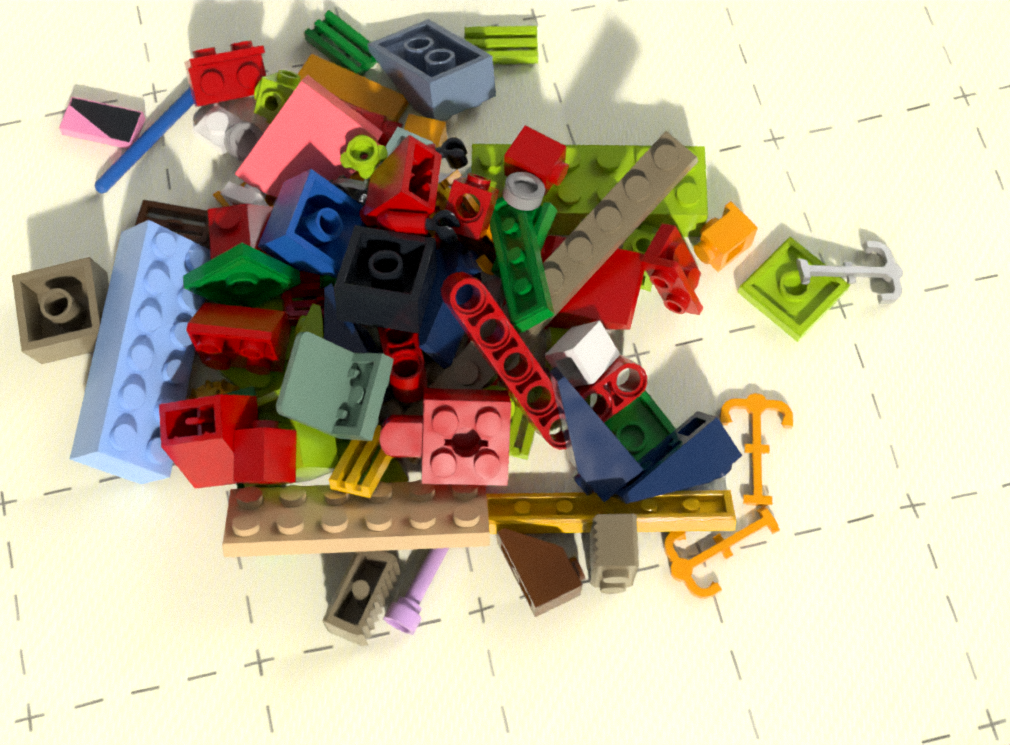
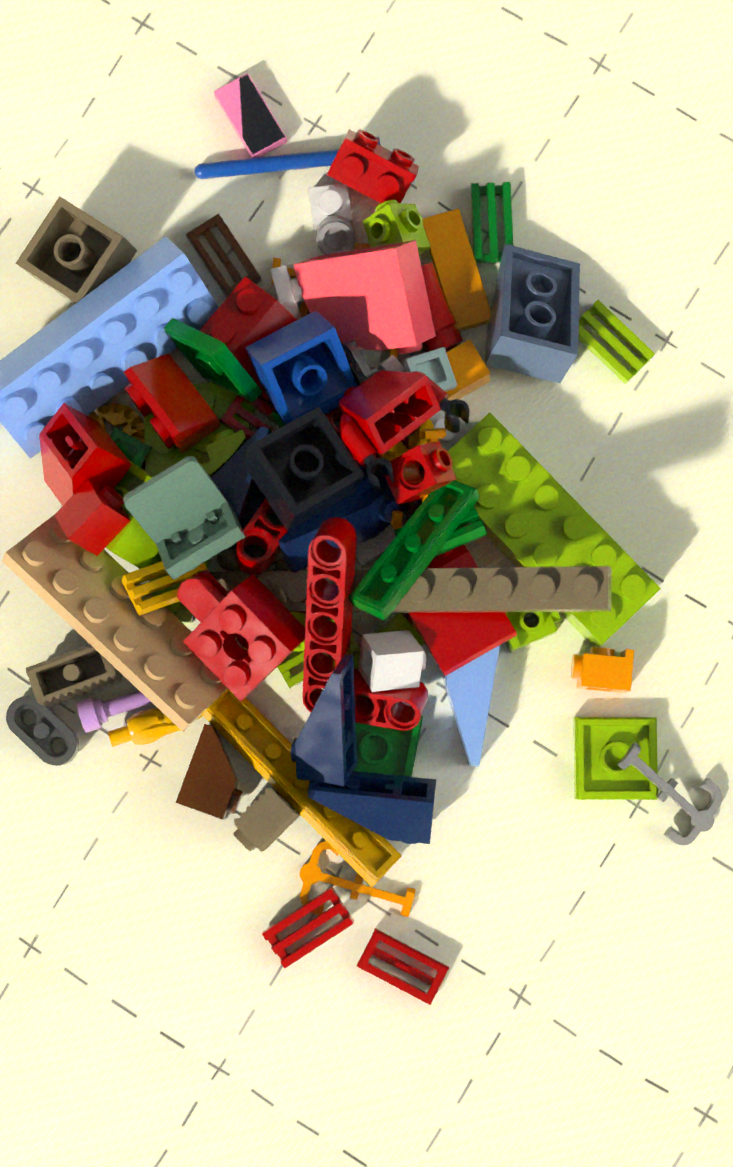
camera: 45 degrees right, 15 degrees up
(363, 145) = (381, 341): lime plate -> none
(380, 663) = (42, 732): none -> dark grey plate
(456, 581) = (144, 728): none -> yellow piece
(523, 191) = (472, 497): light grey tile -> none
(537, 155) = (511, 480): red brick -> none
(663, 343) = (470, 697): none -> light blue slope
(673, 271) = (530, 660): red bracket -> none
(728, 569) = (279, 946): none -> red tile
(756, 405) = (489, 813): light orange piece -> none
(782, 577) = (434, 982): none -> red tile

